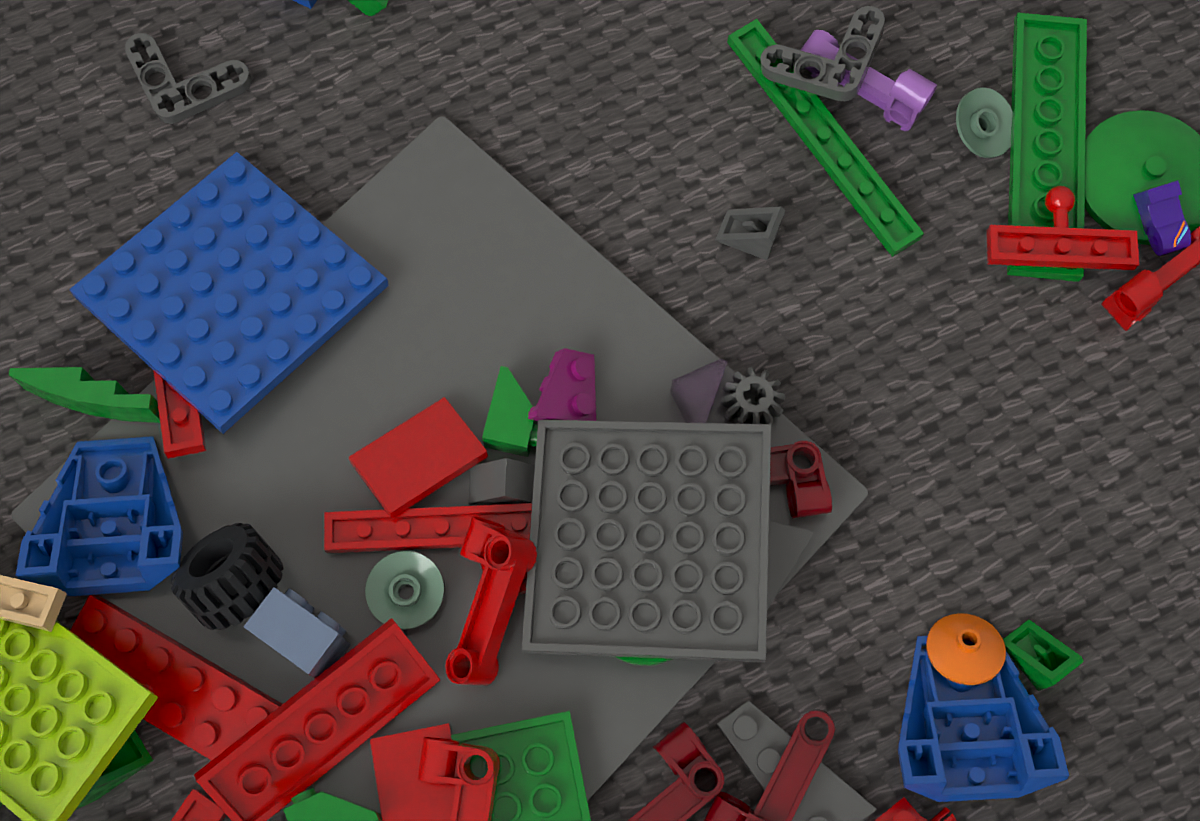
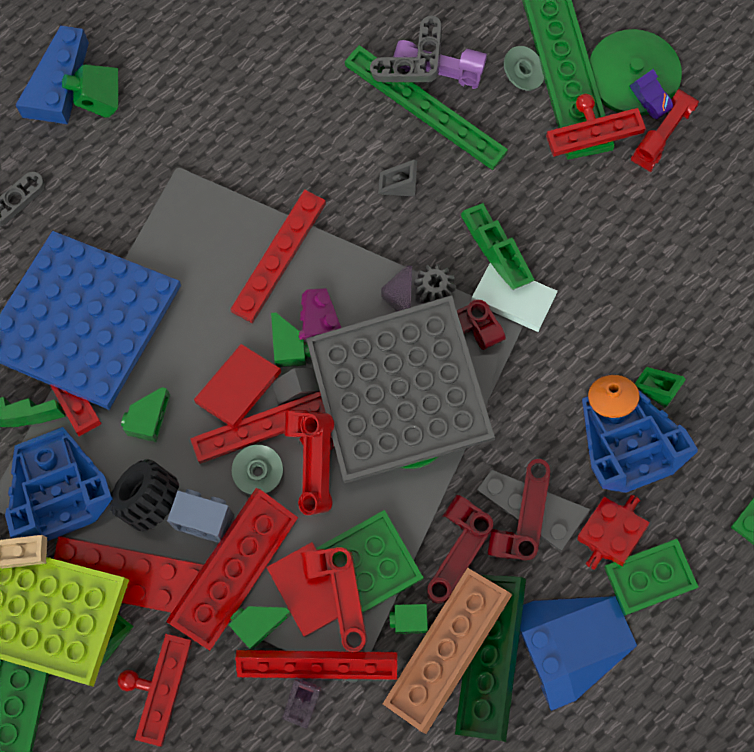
camera: 15 degrees left, 0 degrees up
(275, 459) = (146, 416): none -> green slope
(540, 286) = (278, 256): none -> red plate
(862, 373) = (496, 247): none -> green slope
(865, 452) = (524, 305): none -> light aqua tile

